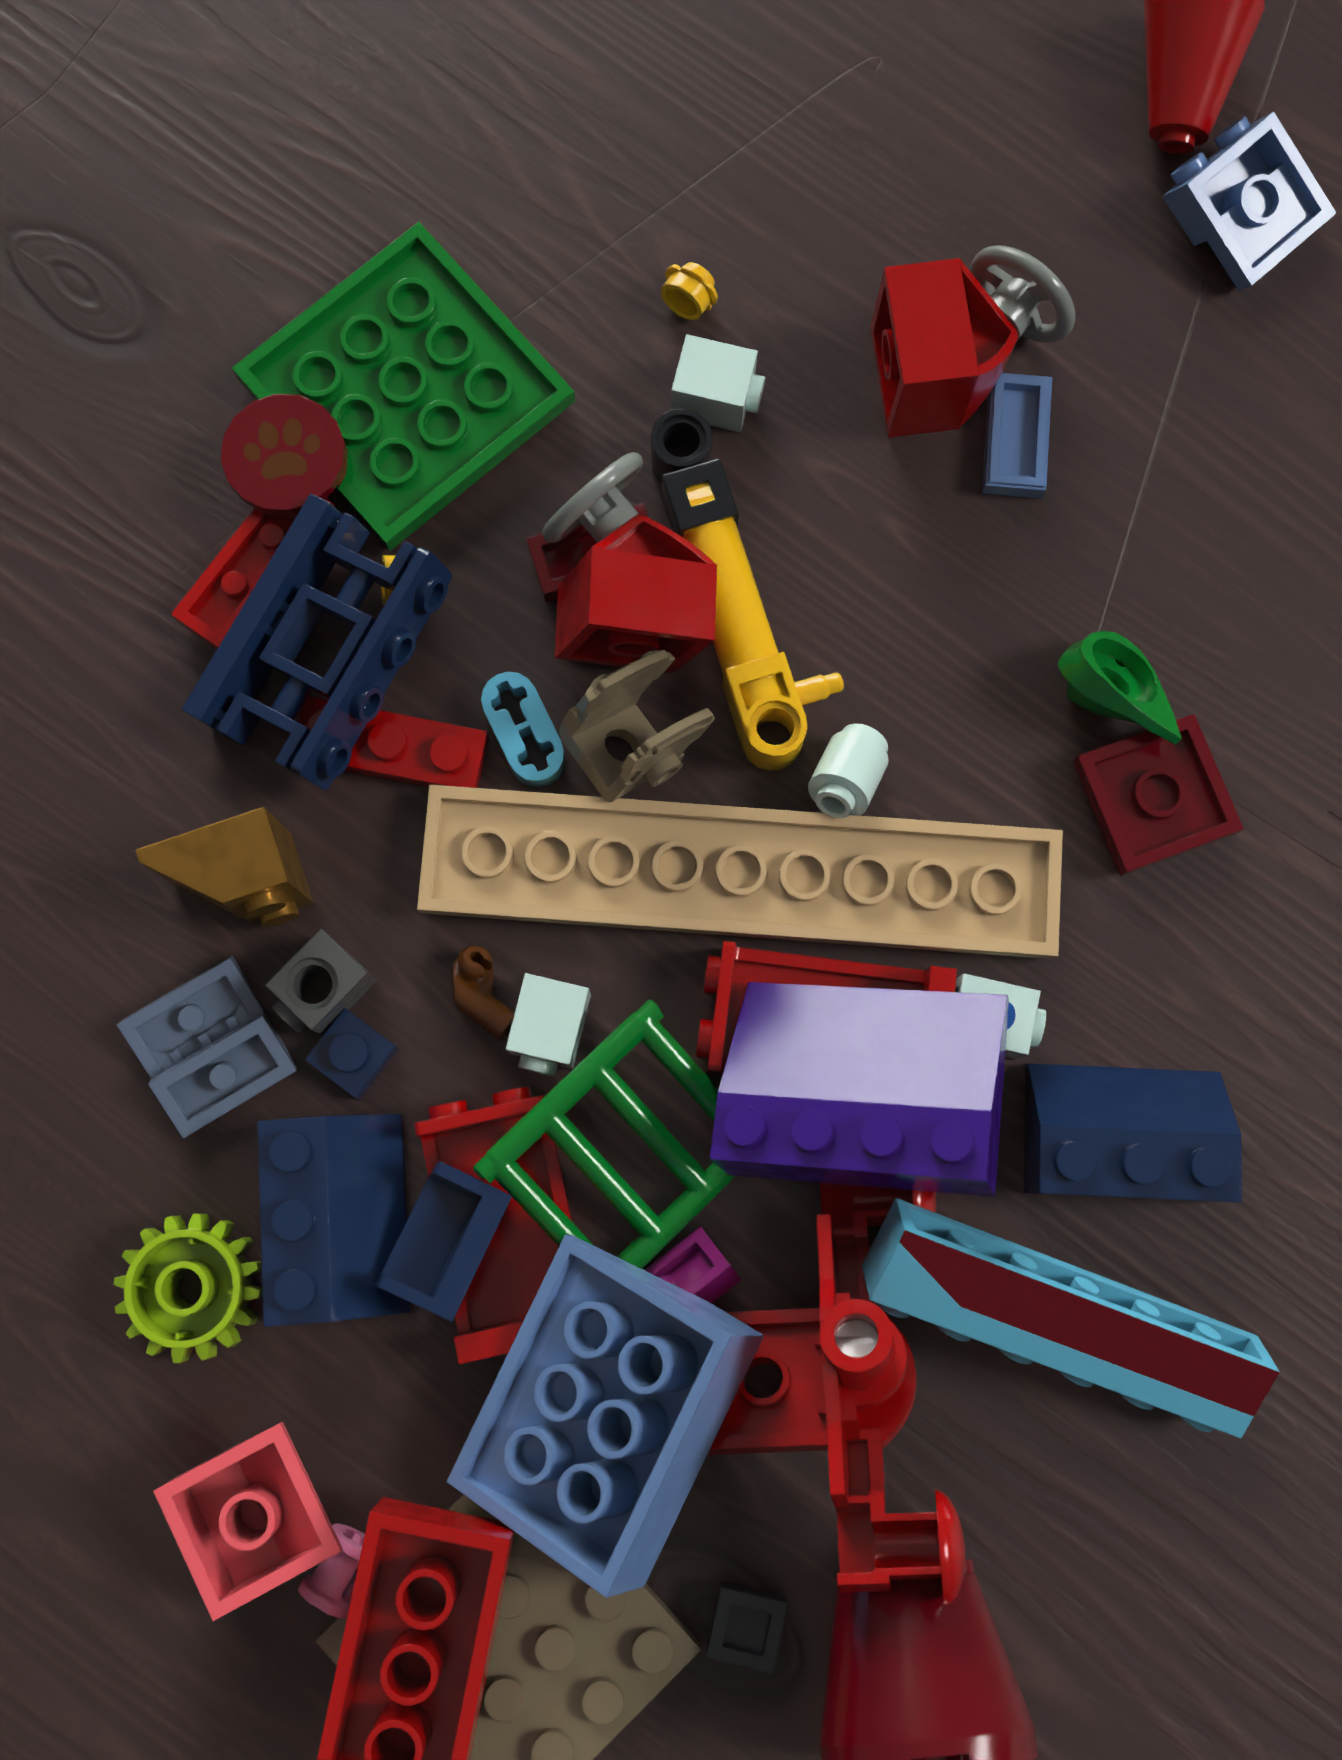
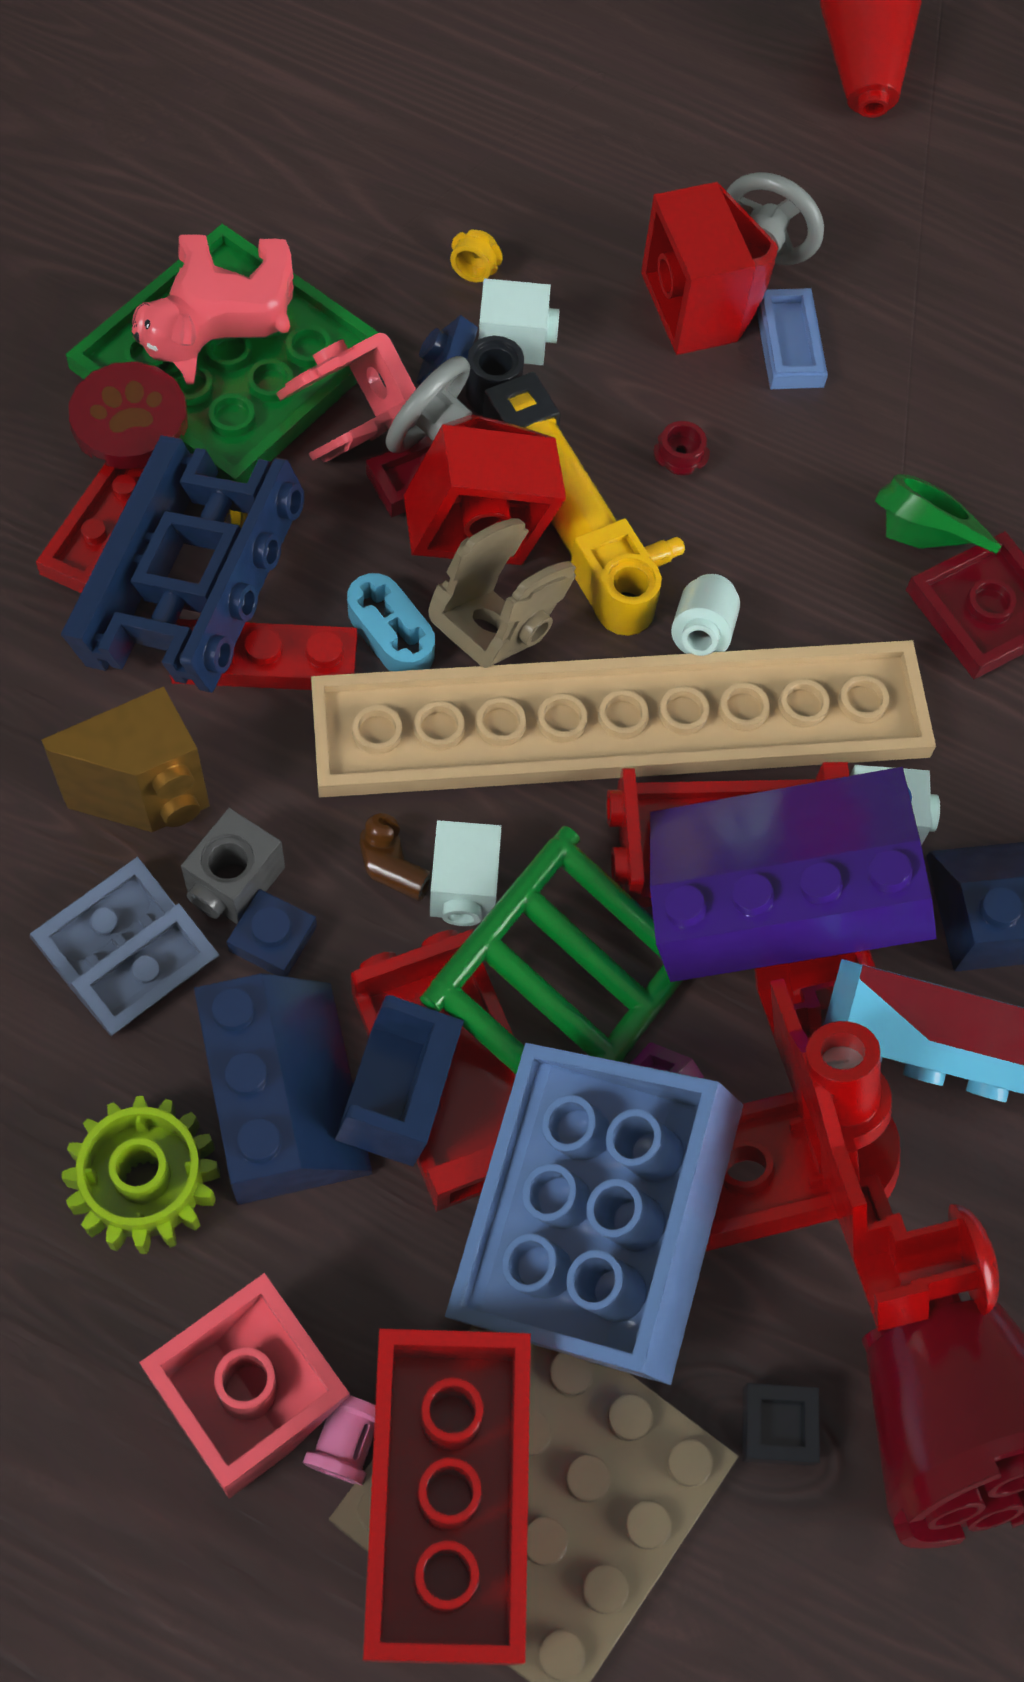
camera: 15 degrees left, 15 degrees down
(390, 337) = (215, 304): none -> coral animal
(555, 449) = (365, 361): none -> coral piece
(633, 415) = (445, 344): none -> dark blue plate
(871, 547) = (682, 437): none -> dark red plate
(1249, 198) = (944, 137): plate -> none

